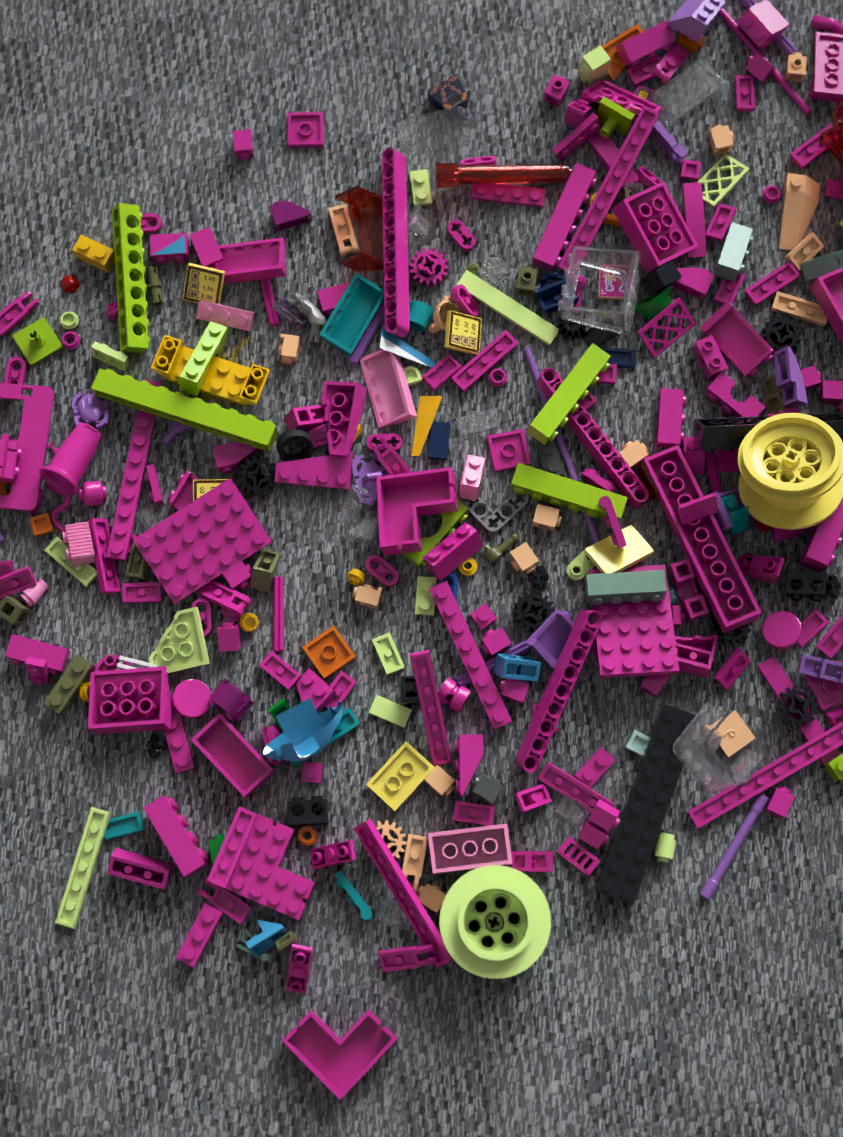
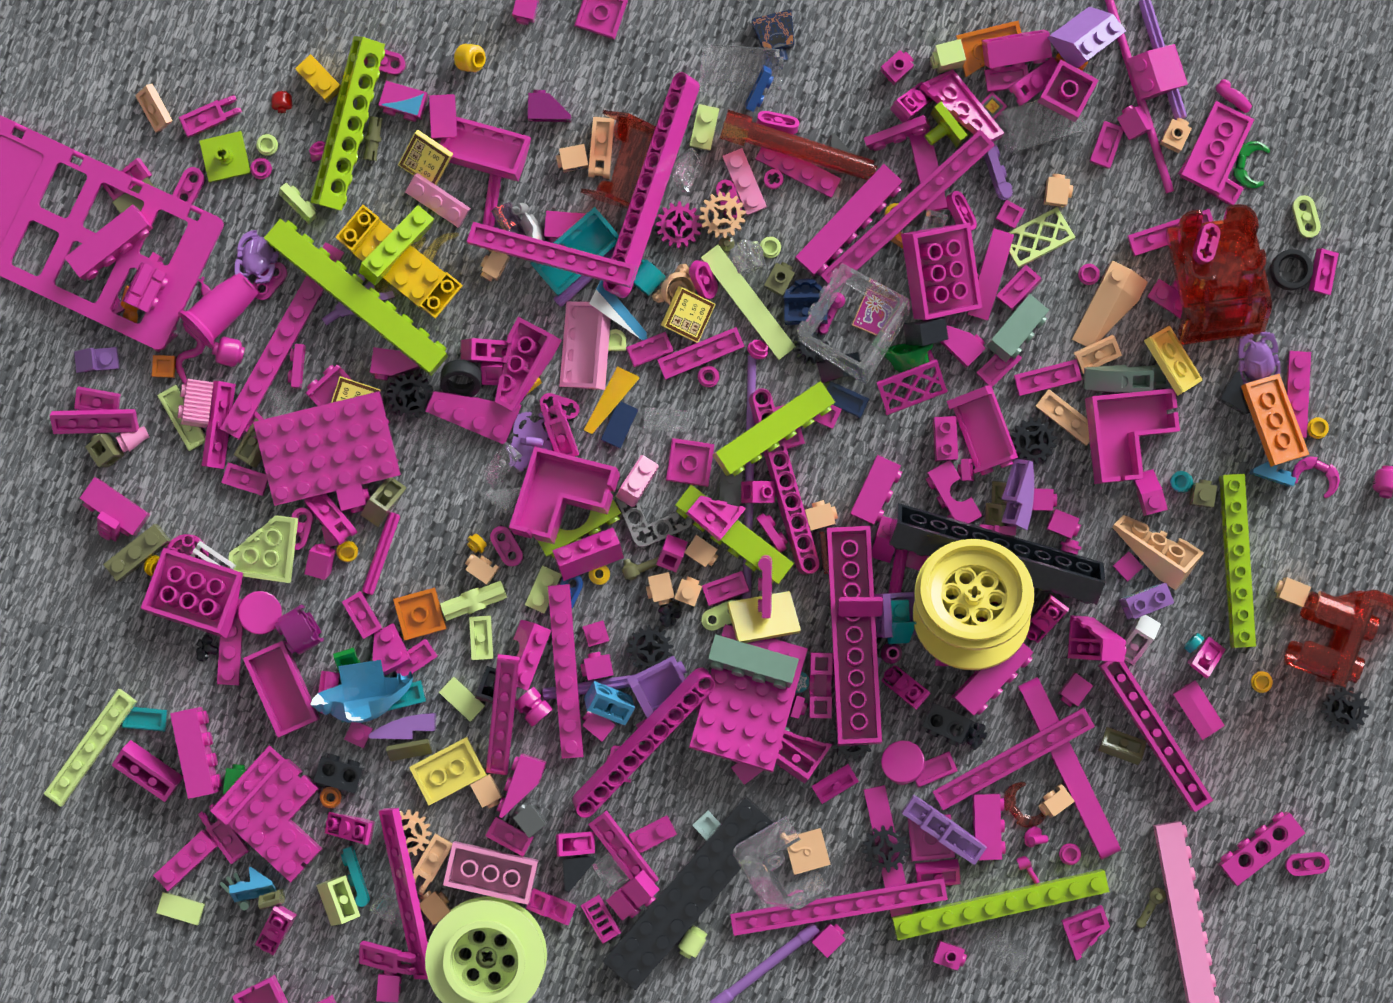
camera: 15 degrees right, 10 degrees up
(110, 428) = (274, 282): none -> dark pink plate
(209, 981) = (180, 908): none -> yellowish green tile
(212, 196) = (469, 58): none -> yellow head
(323, 245) = (572, 158): none -> light nougat brick
(335, 318) = (552, 254): none -> dark pink plate
(345, 922) = (338, 900): none -> yellowish green brick
(350, 751) = (405, 727): none -> medium lavender slope
(360, 769) = (409, 749): none -> olive slope
(370, 624) = (473, 600): none -> yellowish green piece
(416, 982) = (388, 987): none -> dark pink brick
(432, 637) = (532, 642): none -> dark pink arch
(455, 133) = (755, 97): none -> blue plate
(458, 238) = (728, 207): none -> light nougat gear
(469, 217) = (744, 181): none -> bright pink plate
(494, 212) = (775, 185): none -> dark pink bush
(510, 259) = (771, 247): none -> yellowish green plate
(522, 526) = (671, 553): none -> dark pink brick
(530, 342) = (758, 349): none -> dark pink plate
(540, 821) = (574, 869): none -> black slope
(547, 479) = (714, 516): none -> dark pink wing
(548, 553) = (688, 591): none -> light nougat brick
(574, 452) = (758, 492): none -> dark pink brick
(577, 540) = (725, 588): none -> dark pink plate
(700, 56) = (1068, 91): none -> dark pink brick
(736, 376) = (965, 470): none -> dark pink plate
(736, 548) = (885, 653): none -> dark pink cone

